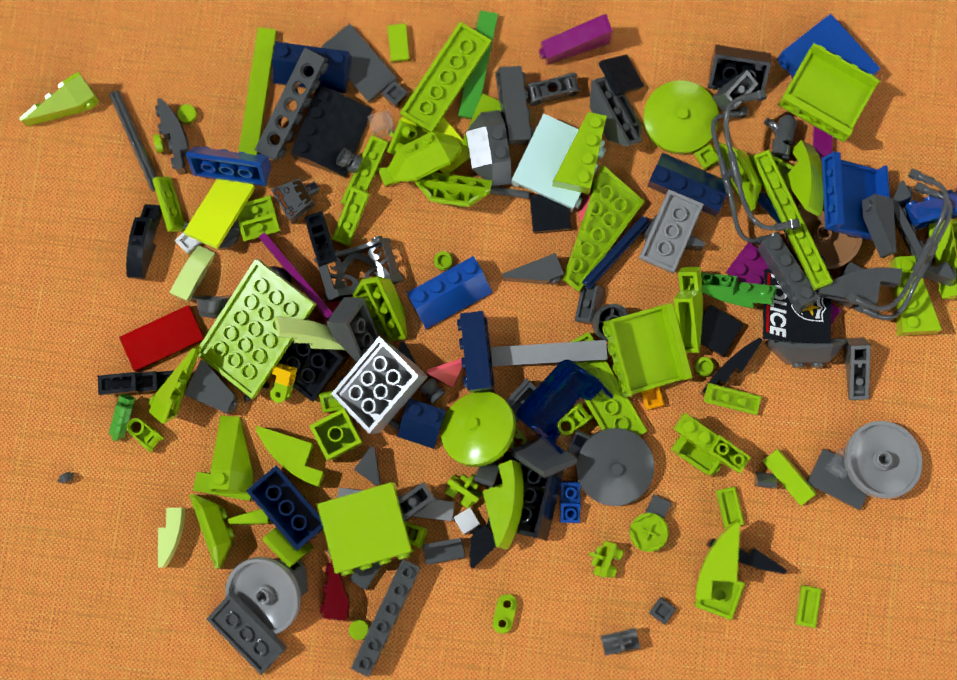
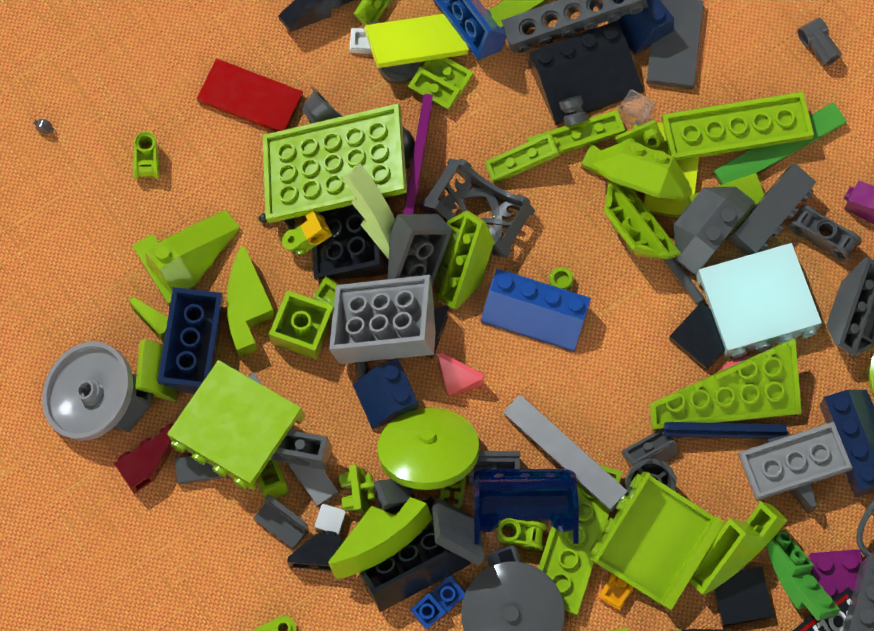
camera: 45 degrees right, 10 degrees down
(121, 416) = (149, 119): bright green rock -> none
(132, 382) = (189, 111): black slope -> none
(170, 395) = (201, 147): lime wedge -> none
(170, 536) = (71, 262): yellowish green slope -> none
(192, 274) = (334, 69): yellowish green slope -> none
(211, 390) = (241, 178): dark grey slope -> none
(214, 529) = (112, 295): lime wedge -> none
(246, 633) = (39, 409): dark grey tile -> none
(295, 198) = (491, 96): dark grey torso -> none
(320, 238) = (473, 146): black slope -> none
(358, 629) = (133, 510): lime tile -> none
(369, 467) = (300, 381): dark grey slope -> none
(385, 618) = (167, 524): dark grey brick -> none
(394, 93) = (677, 97): dark grey plate -> none
(398, 43) = (728, 59): lime tile -> none
(432, 391) = (426, 377): dark grey wheel -> none
(476, 352) = (501, 382): dark blue slope -> none
(538, 272) = (636, 375): dark grey slope -> none
(580, 161) = (782, 312): lime wedge -> none
(704, 366) = (695, 616): lime tile -> none

